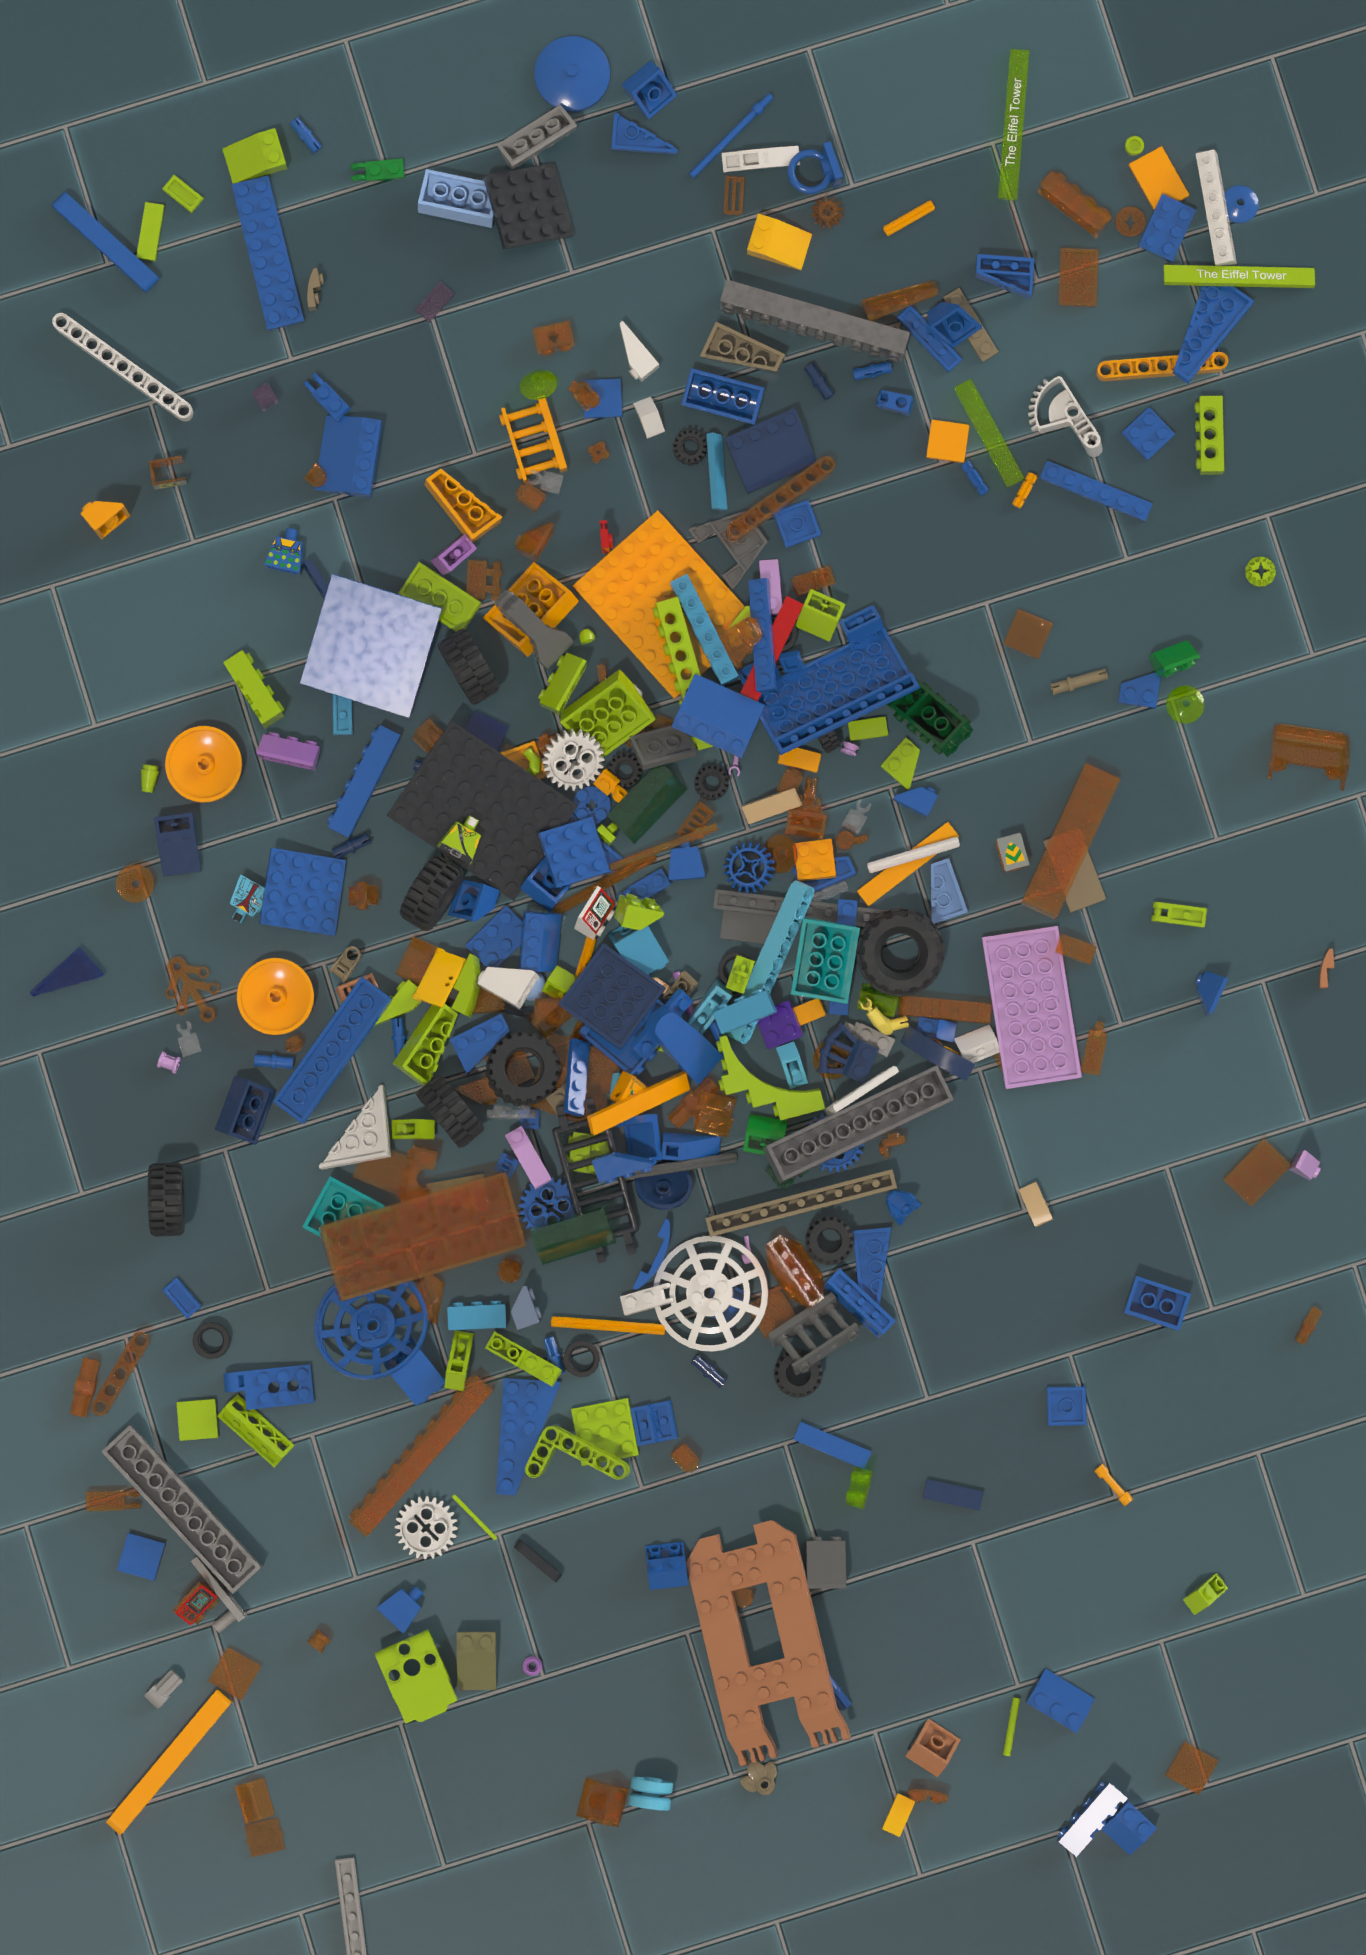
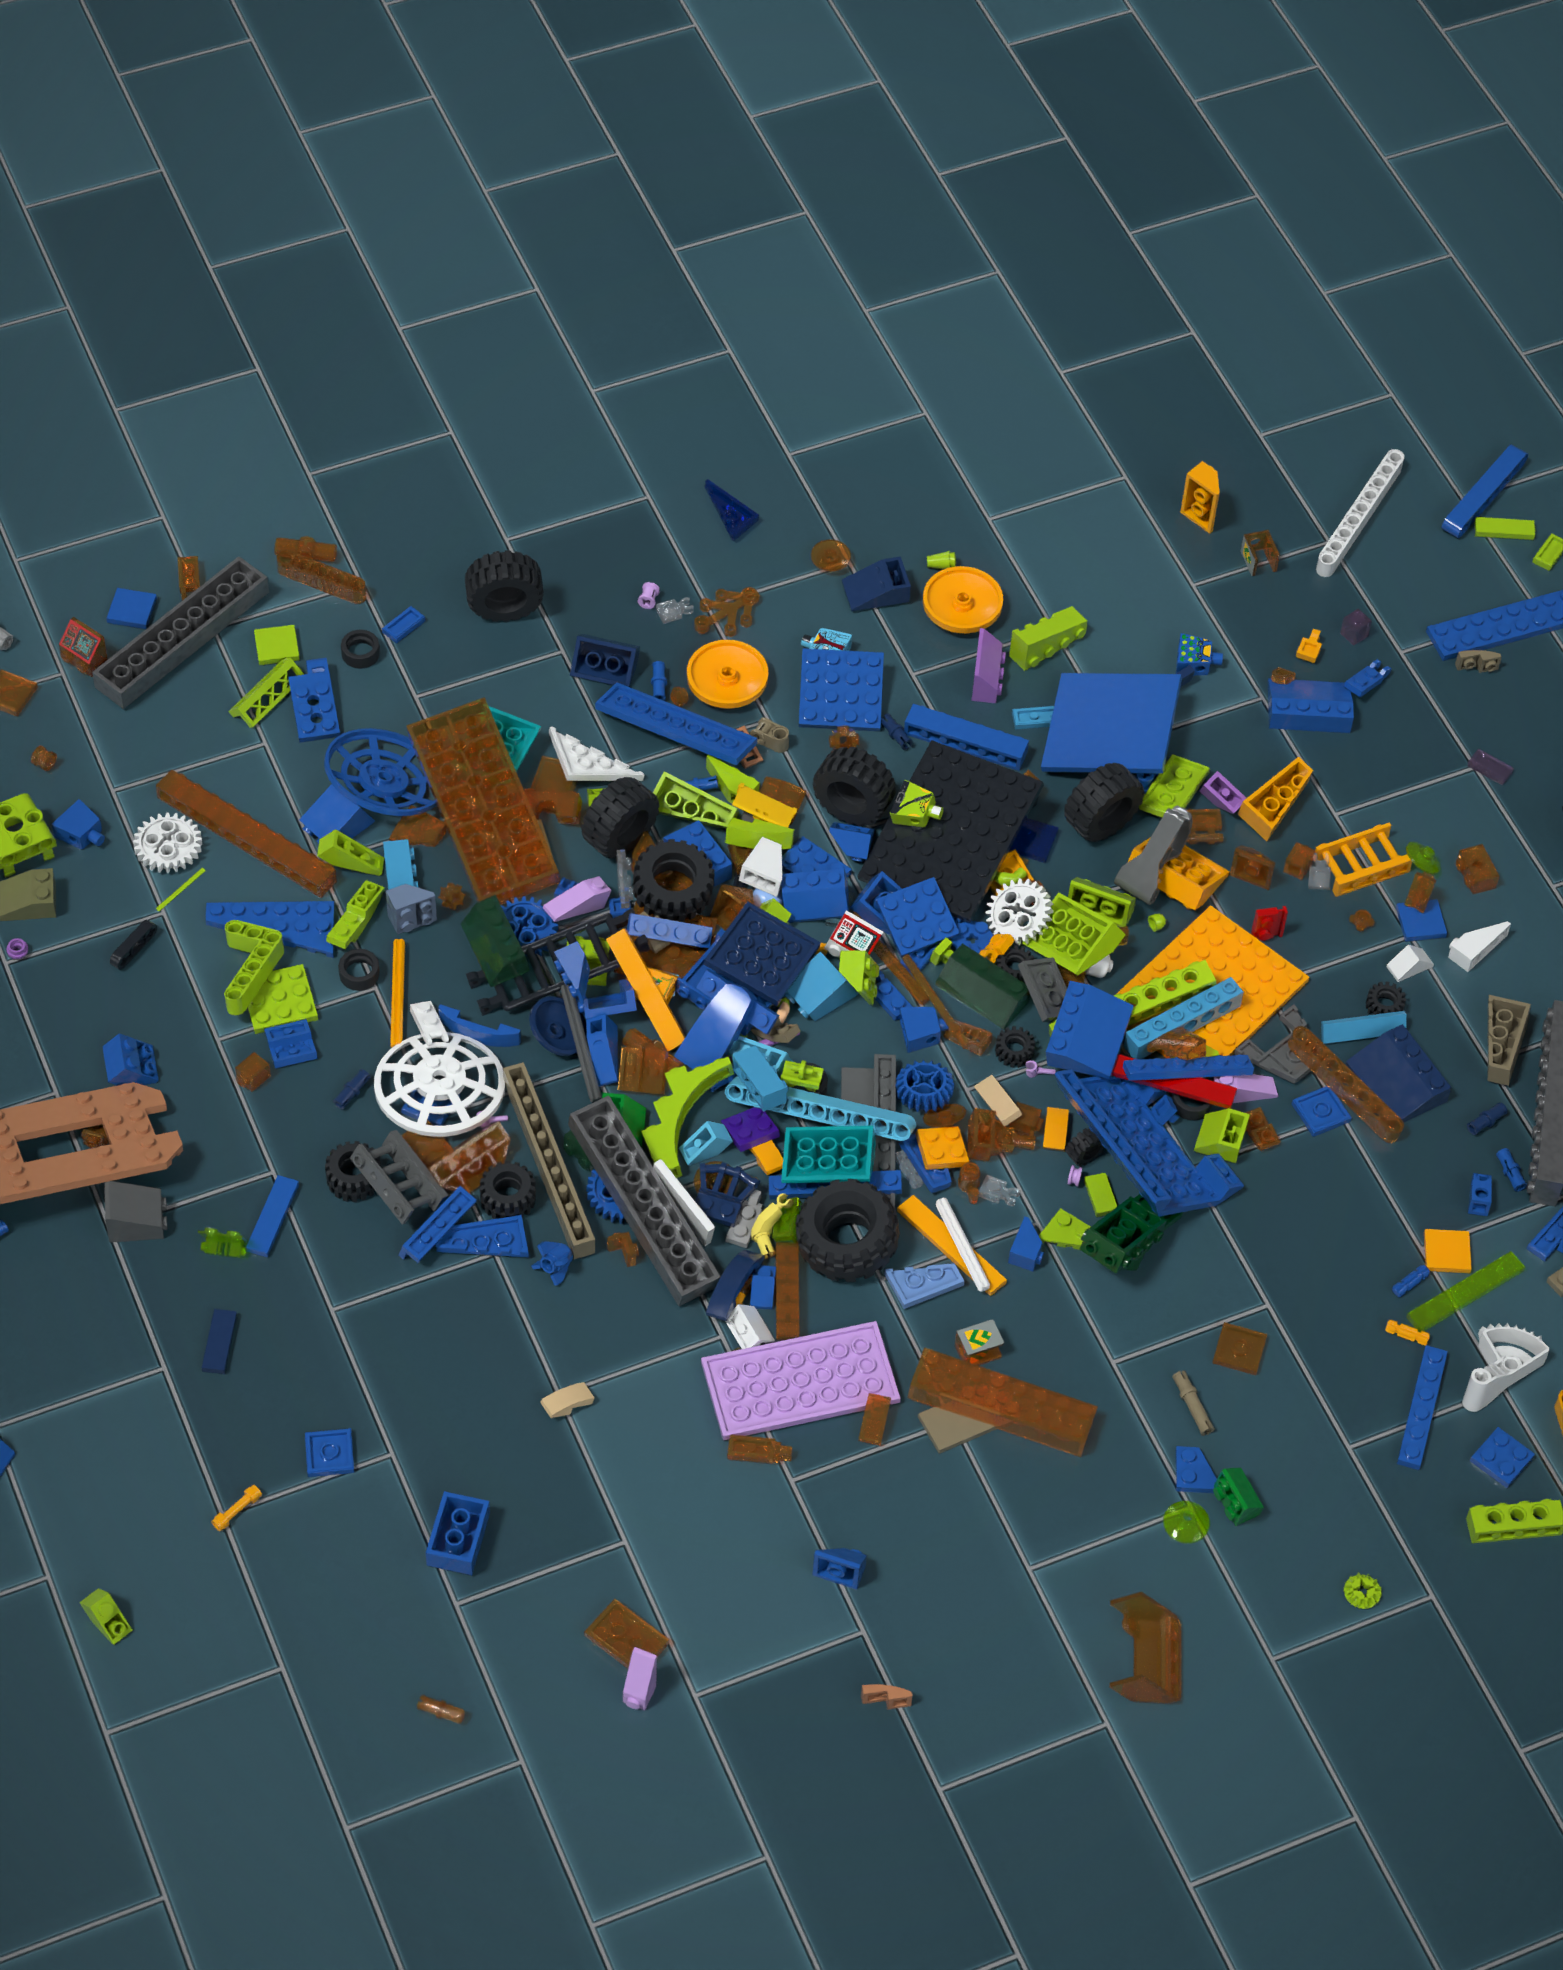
camera: 80 degrees right, 30 degrees down
(235, 1611) = (82, 681): light grey piece -> none
(284, 445) = (1310, 648): none -> light orange plate
(552, 1352) = (364, 942): blue axle -> none
(723, 396) = (1448, 1025): blue brick -> none
(1179, 914) = (931, 1531): lime plate -> none

